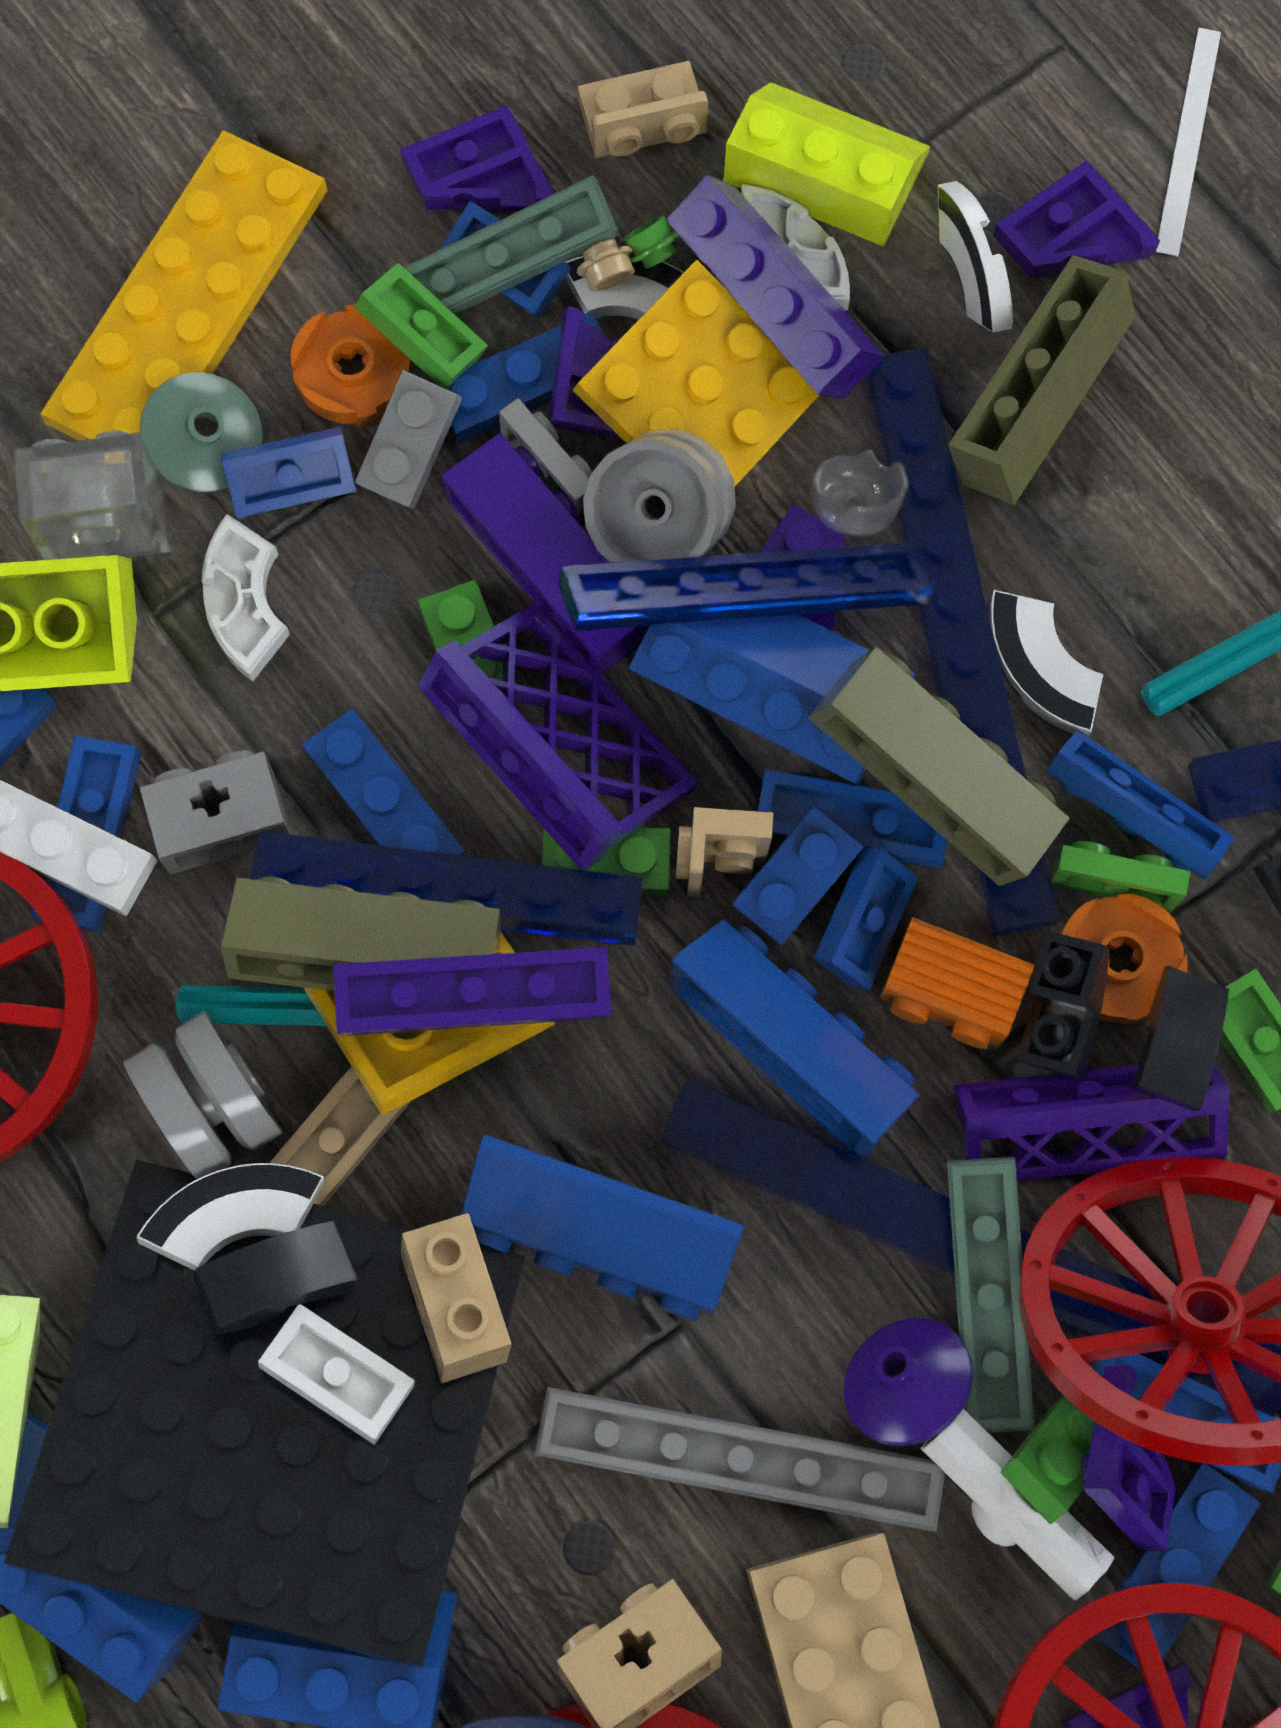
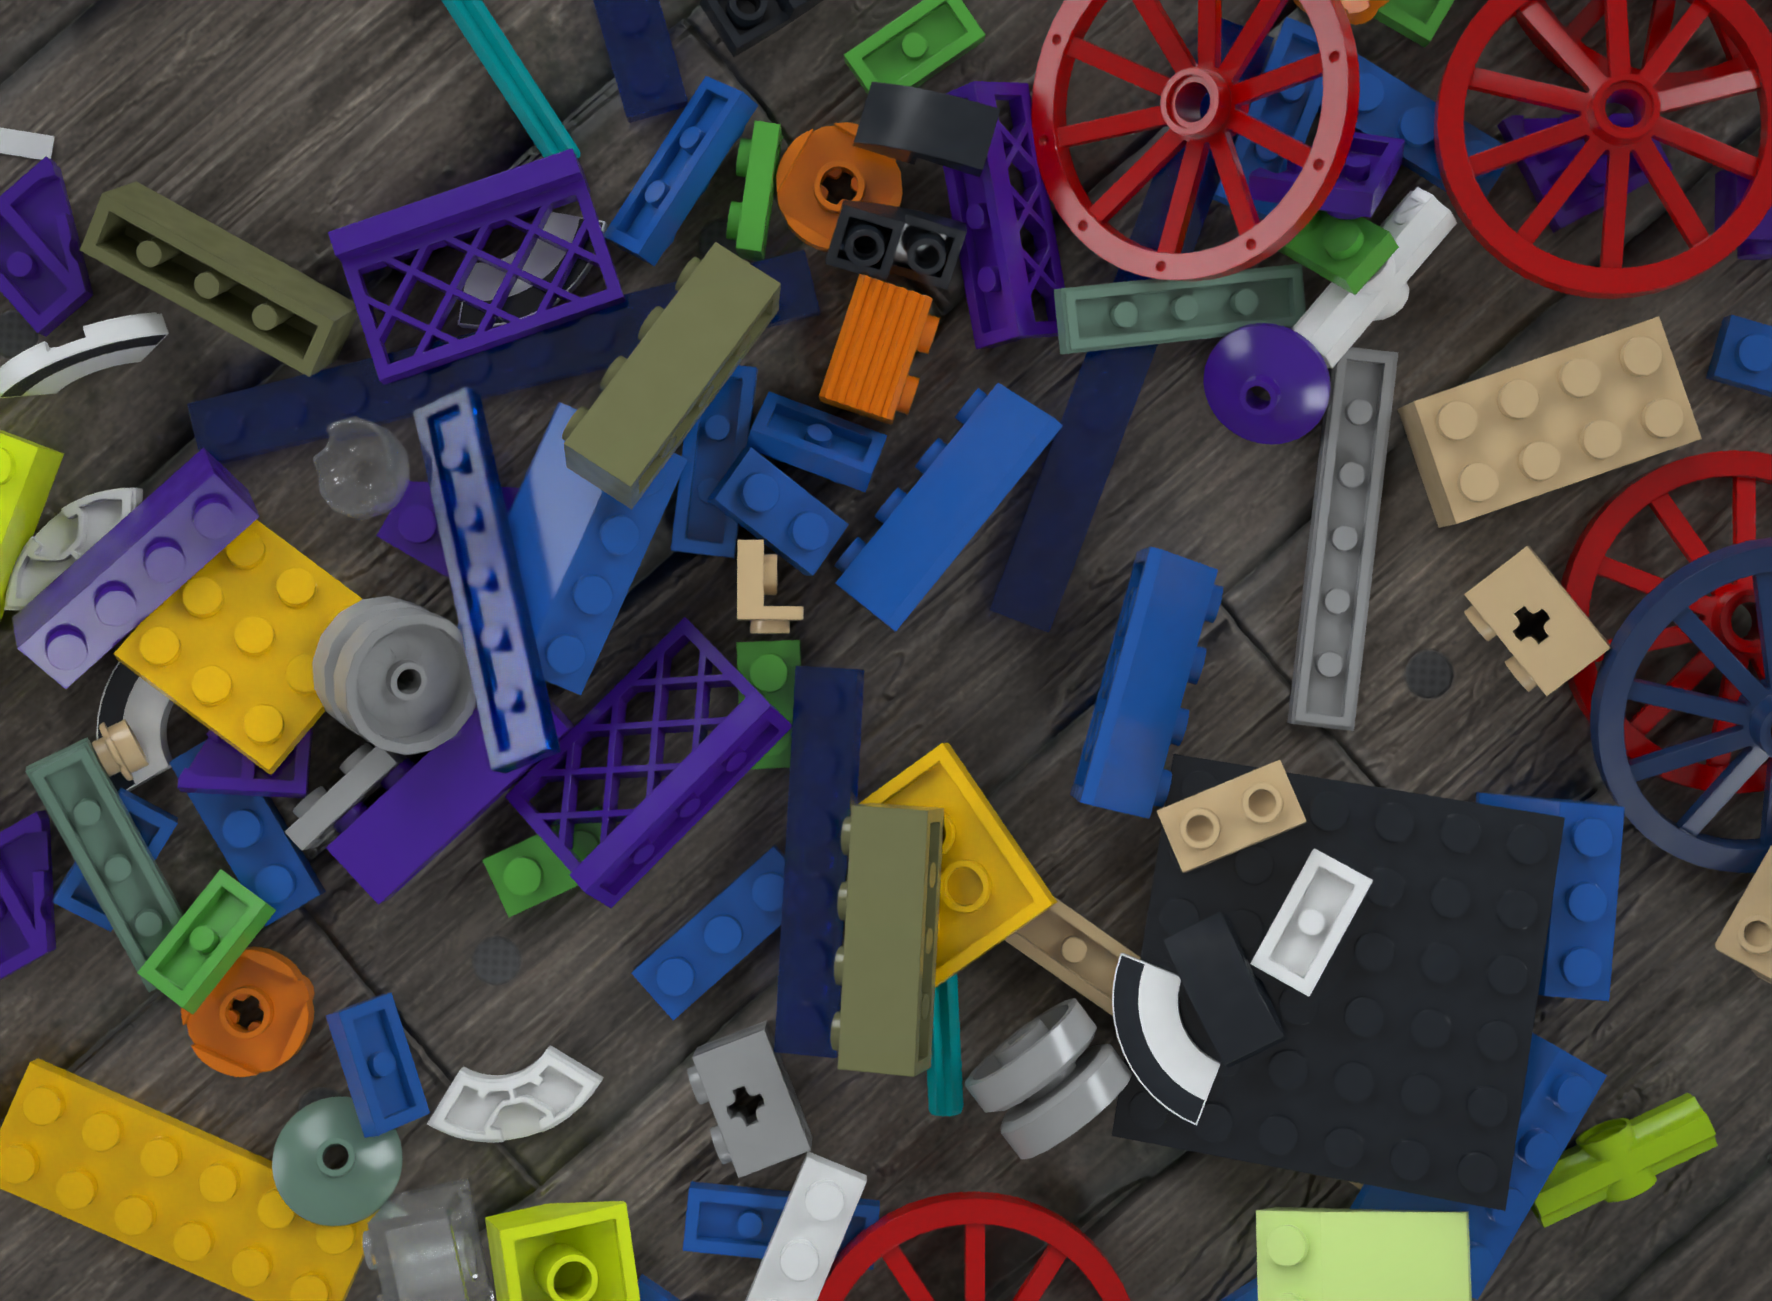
camera: 90 degrees left, 15 degrees up
(408, 439) = (332, 943): light grey plate -> none
(471, 991) = (943, 825): dark purple fence -> none
(651, 242) = (89, 704): bright green plate -> none
(1100, 608) = (467, 213): none -> dark purple fence

